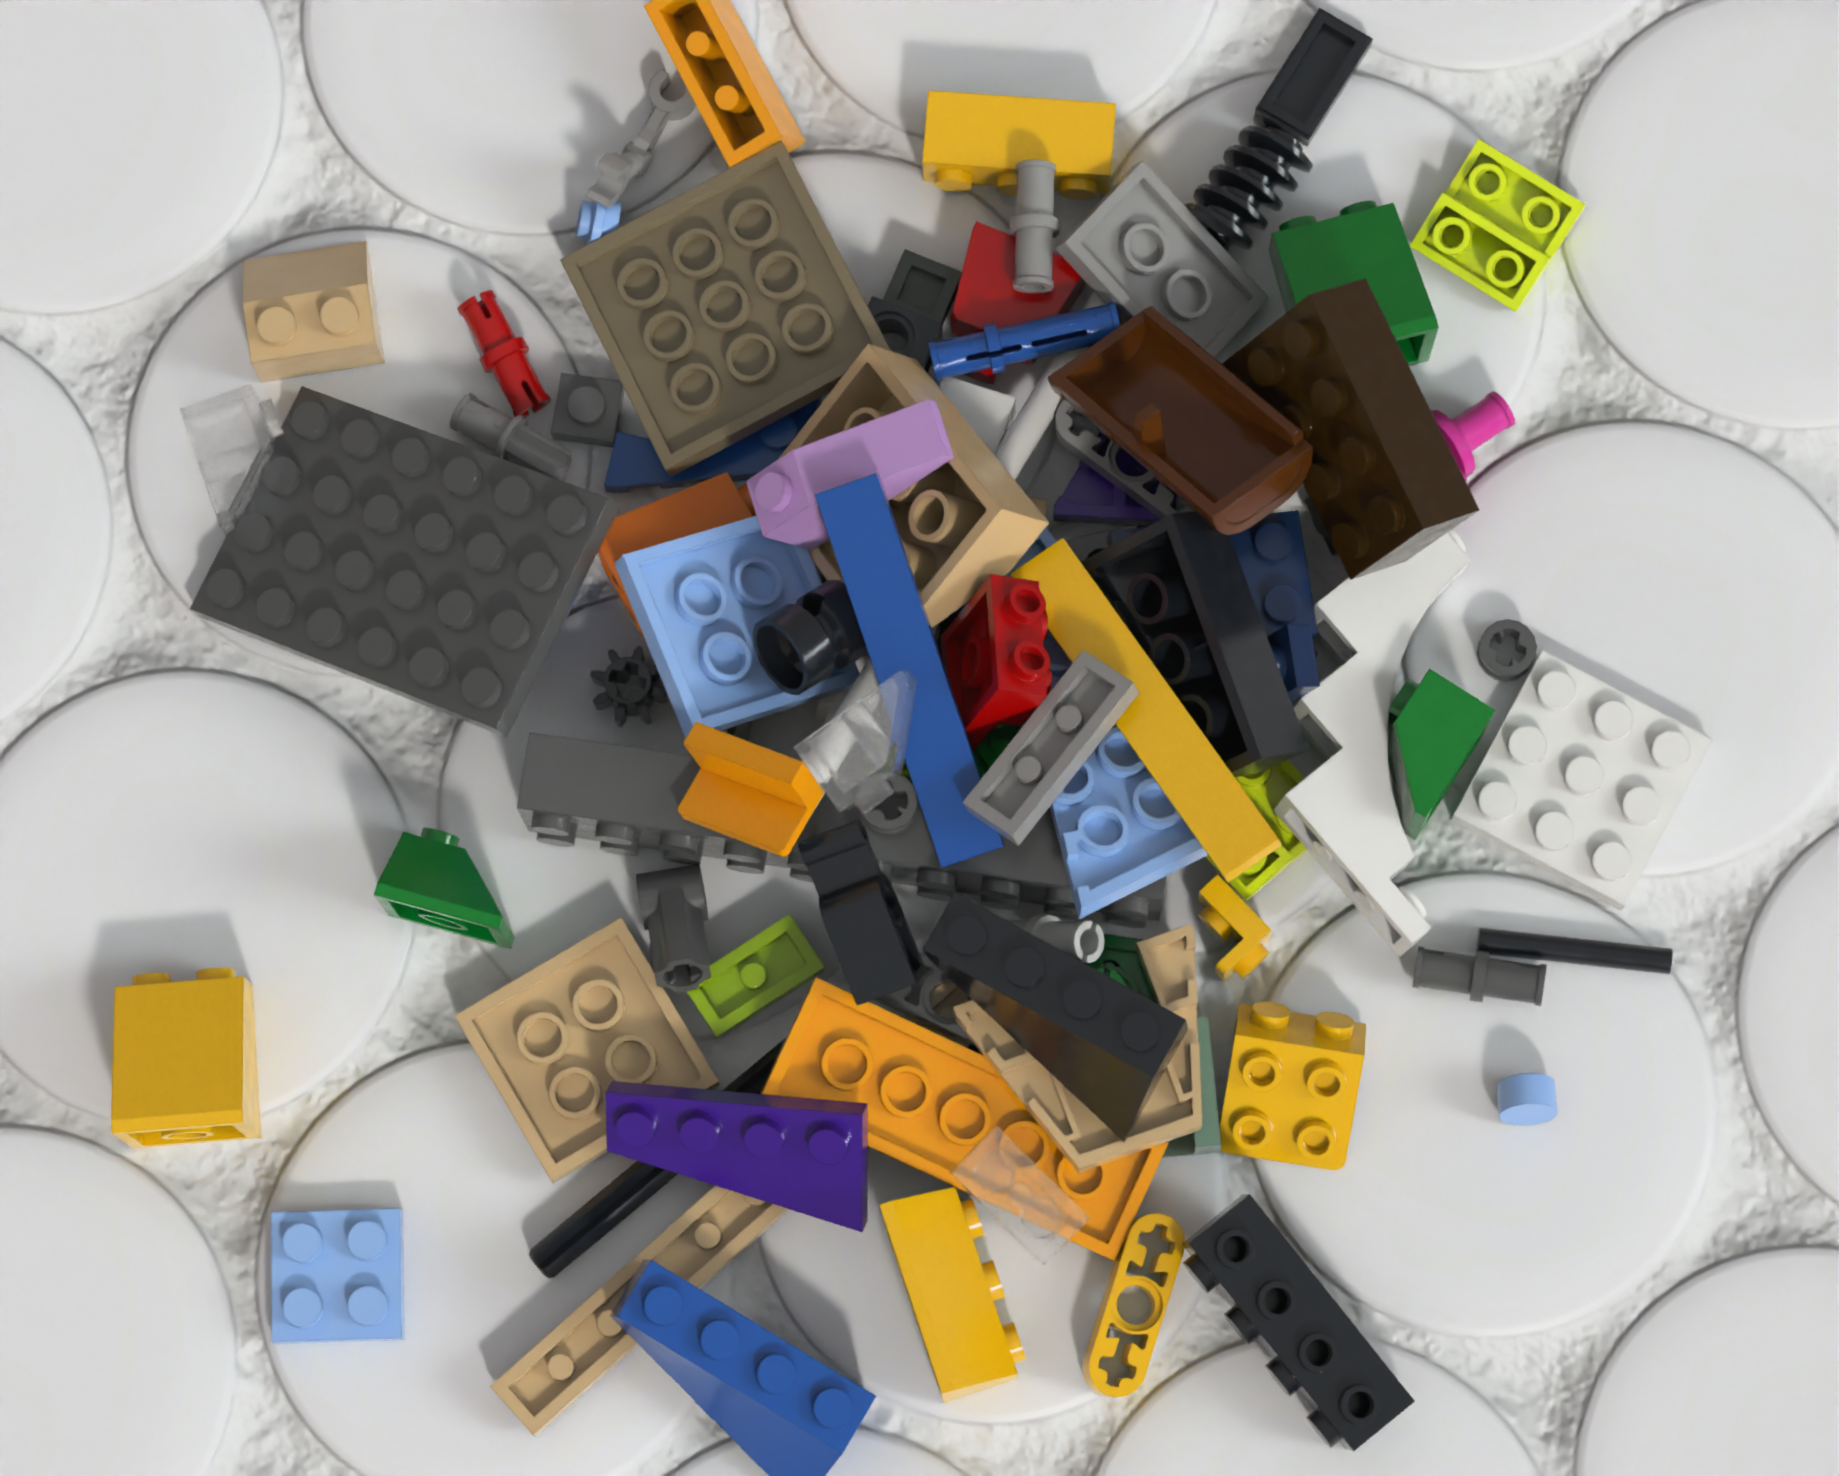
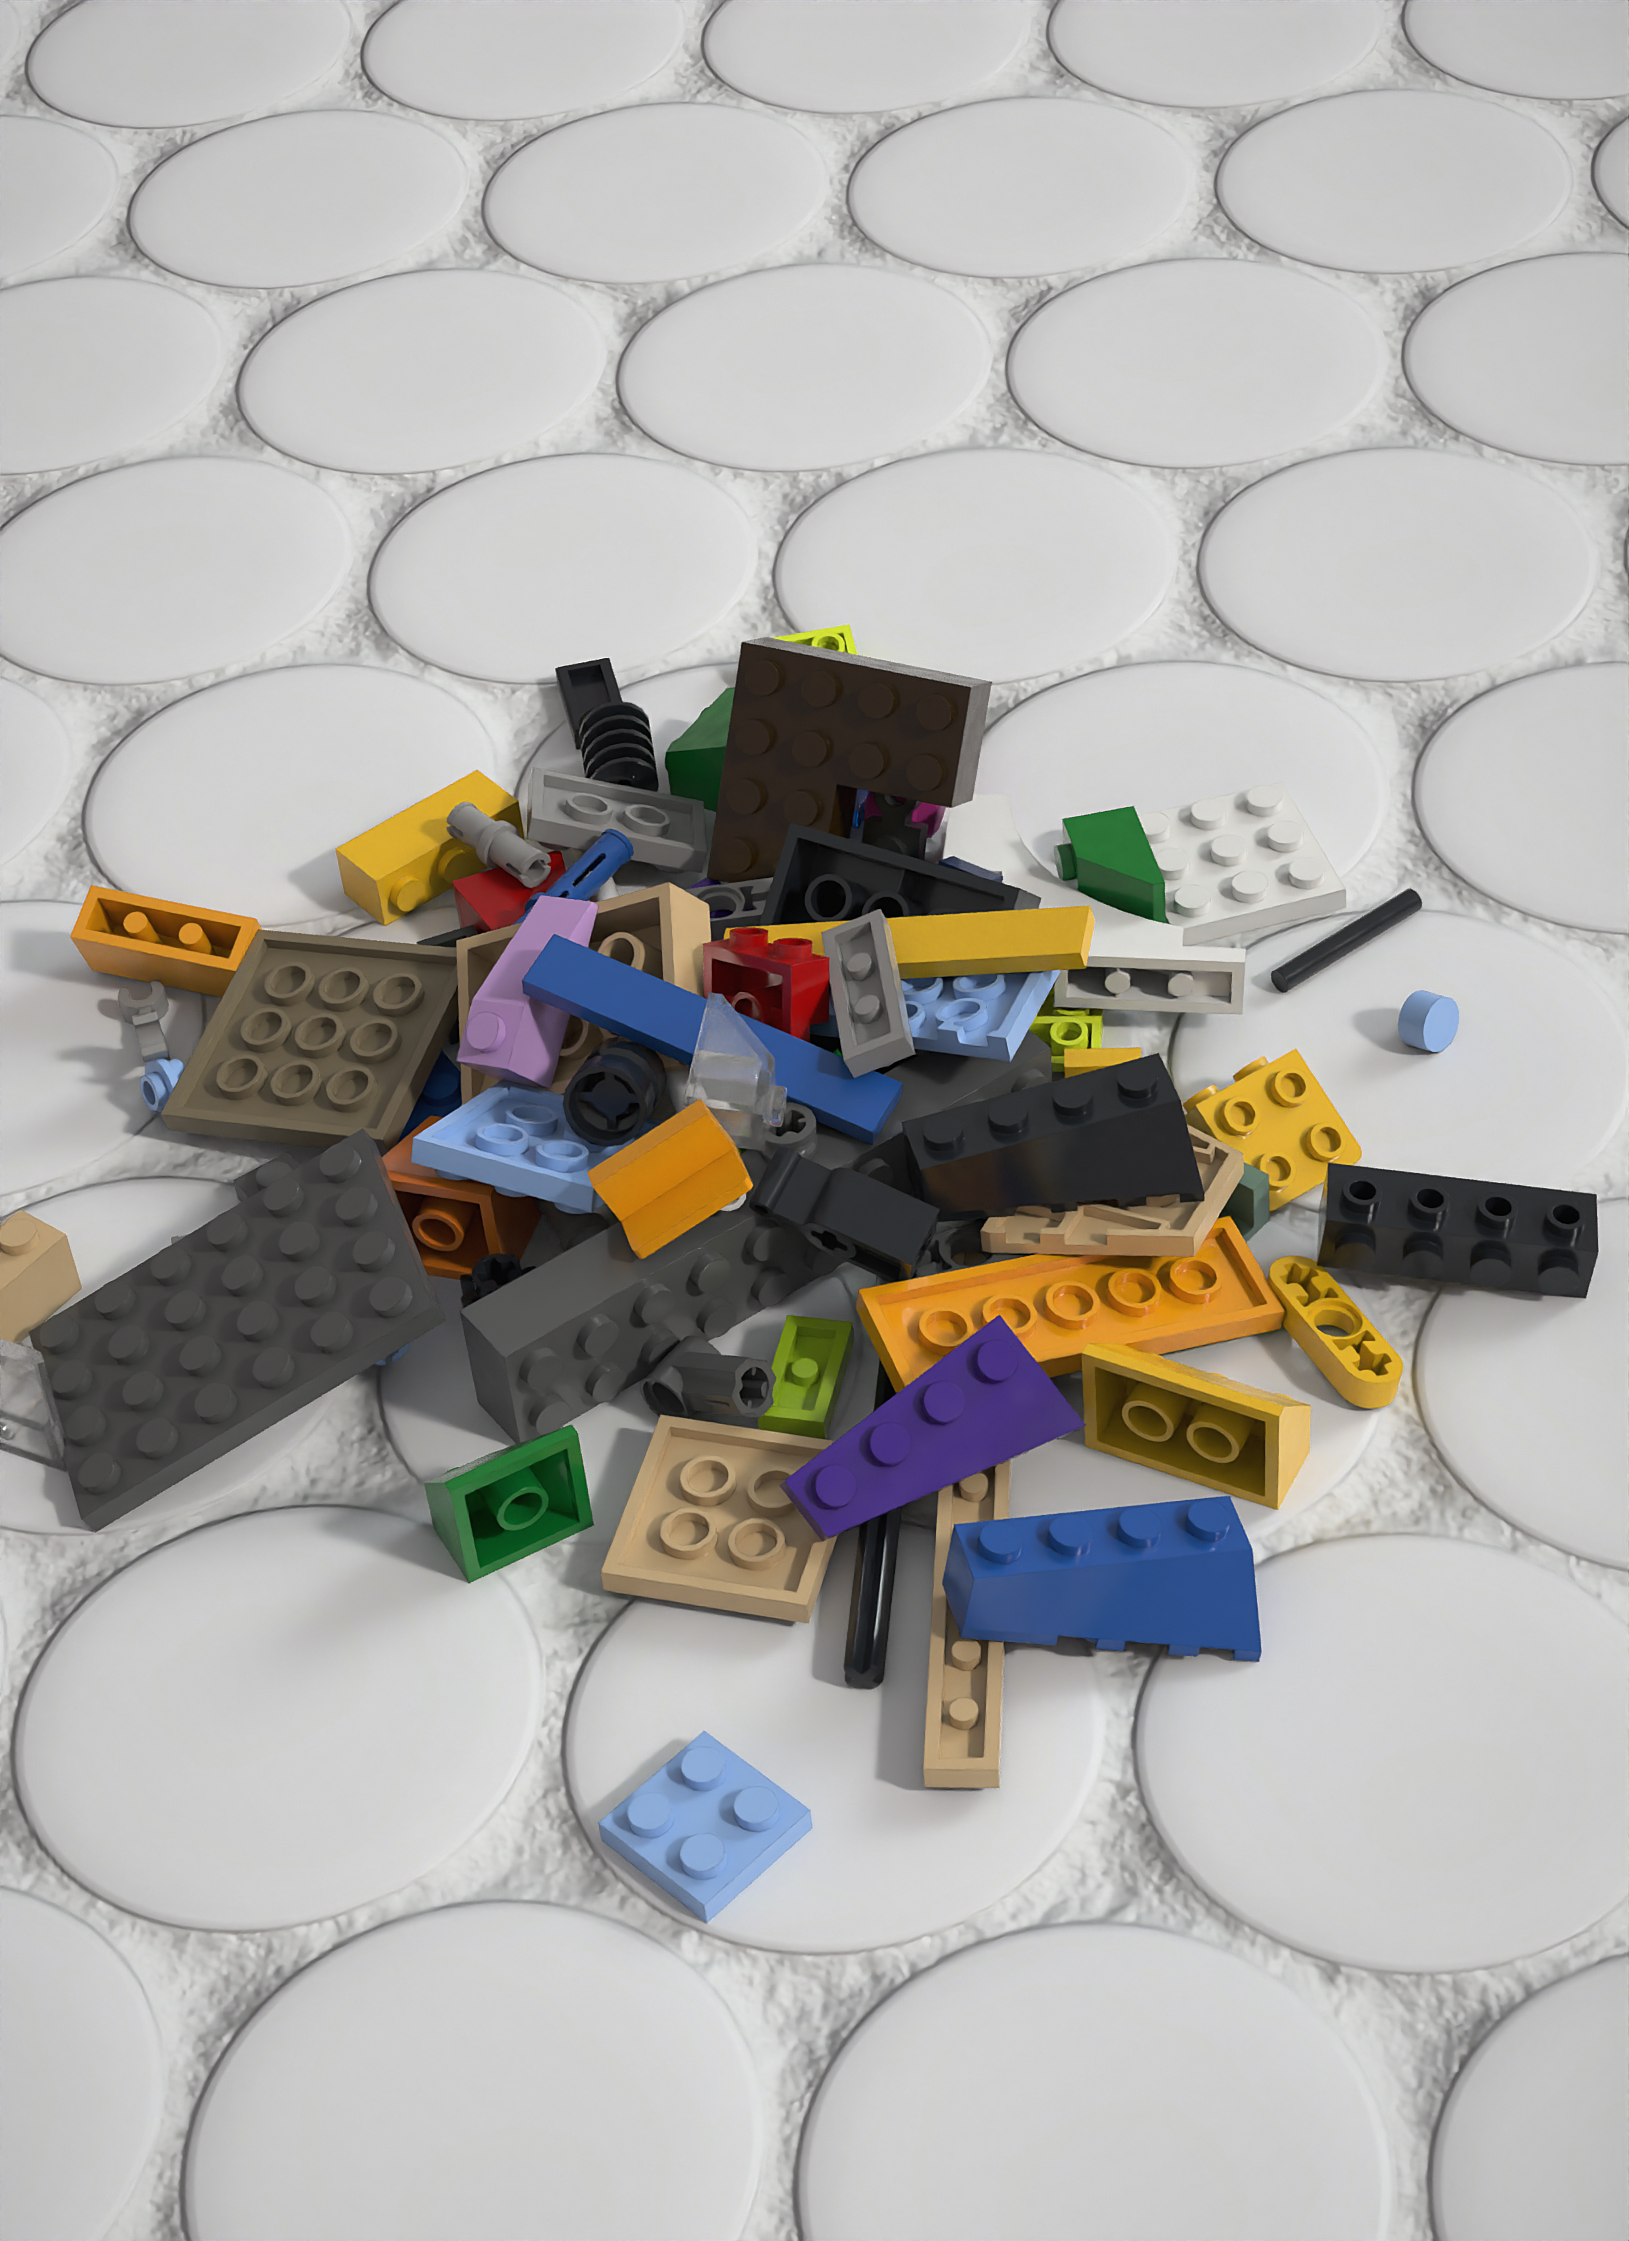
camera: 45 degrees left, 35 degrees down
(185, 1060) = (414, 1776): yellow slope -> none
(504, 354) = (169, 1201): red pin -> none
(1019, 1195) = (1171, 1301): clear plate -> none
(1188, 421) = (735, 811): reddish brown container -> none
(1479, 976) = (1306, 989): dark grey pin -> none

